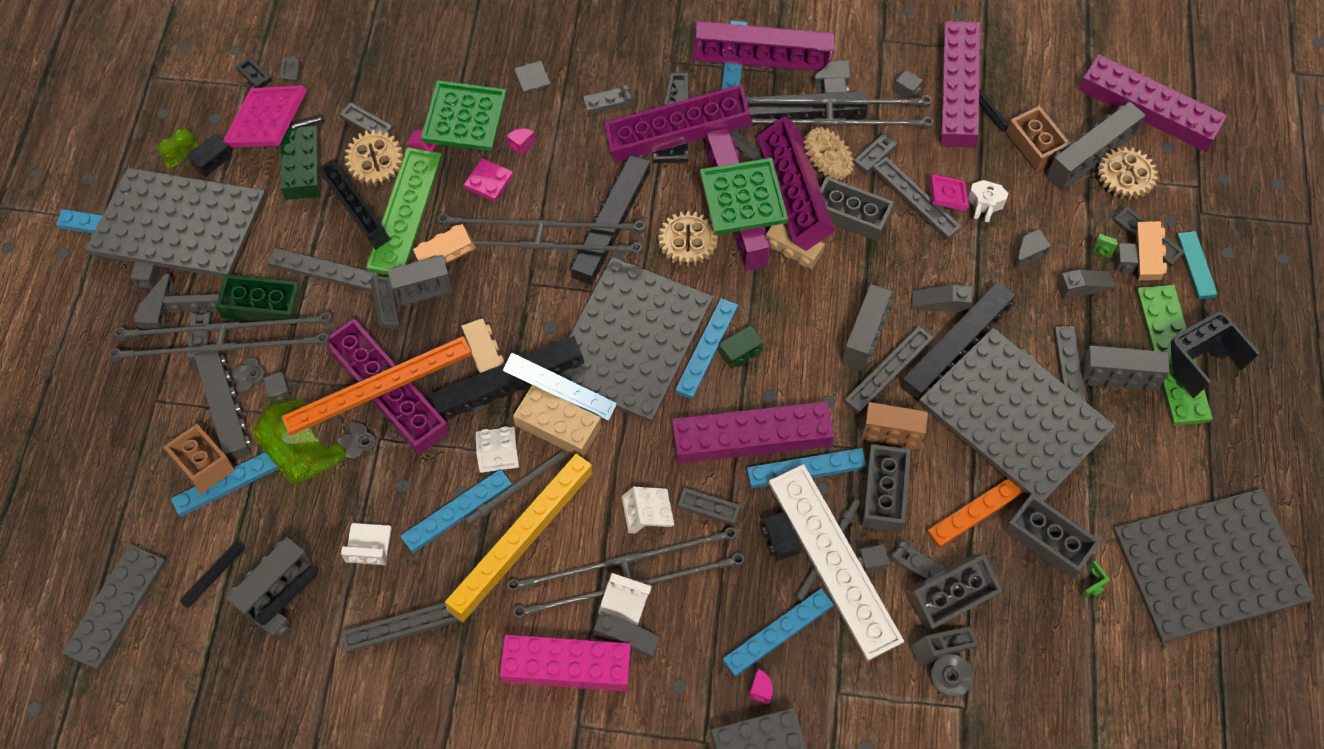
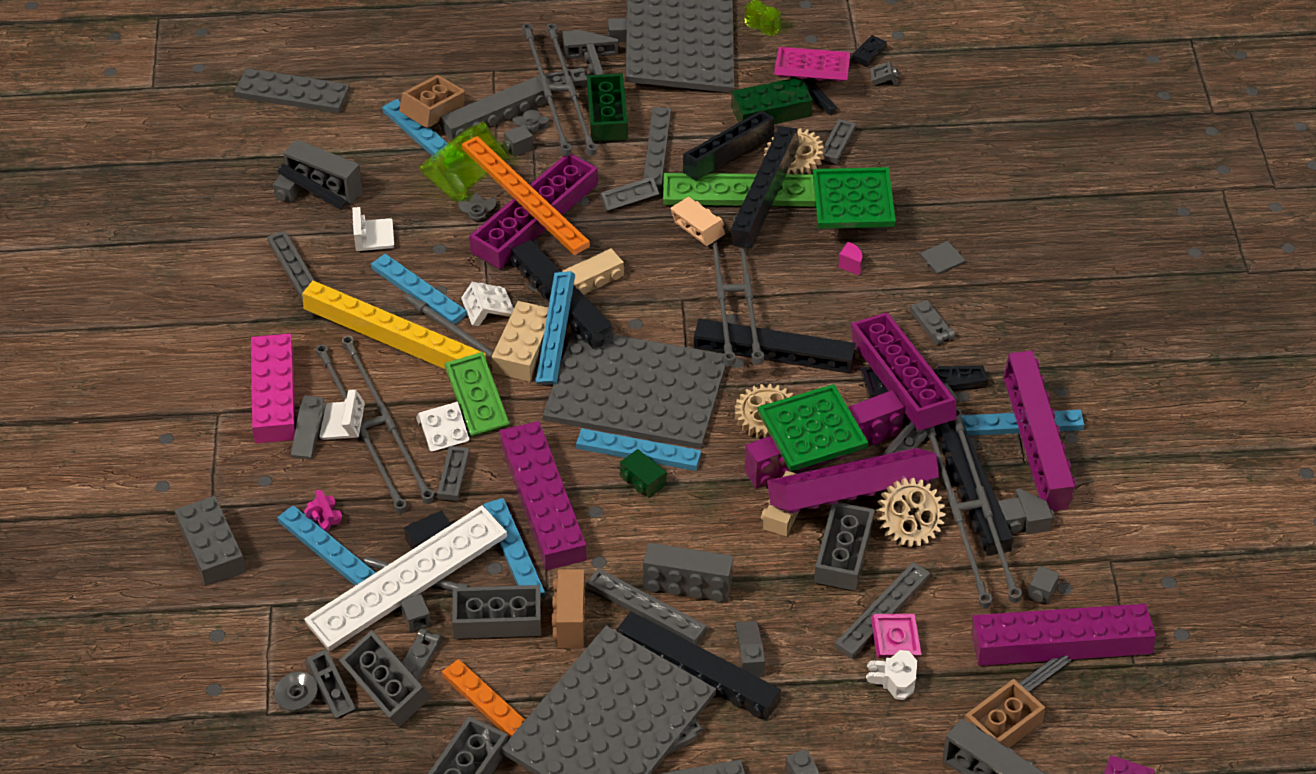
camera: 80 degrees right, 15 degrees down
(209, 155) = (761, 41): black brick -> none
(212, 574) = (329, 141): black axle -> none
(420, 280) = (654, 209): dark grey brick -> none
(425, 182) = (765, 187): none -> black brick
(488, 180) = (797, 246): dark pink plate -> none
(621, 470) = (476, 394): none -> bright green tile
(736, 631) = (321, 510): none -> dark pink hips
(761, 688) = (266, 537): dark pink brick -> none
(875, 153) = (936, 565): dark grey plate -> none
(1033, 247) = (841, 726): slope -> none

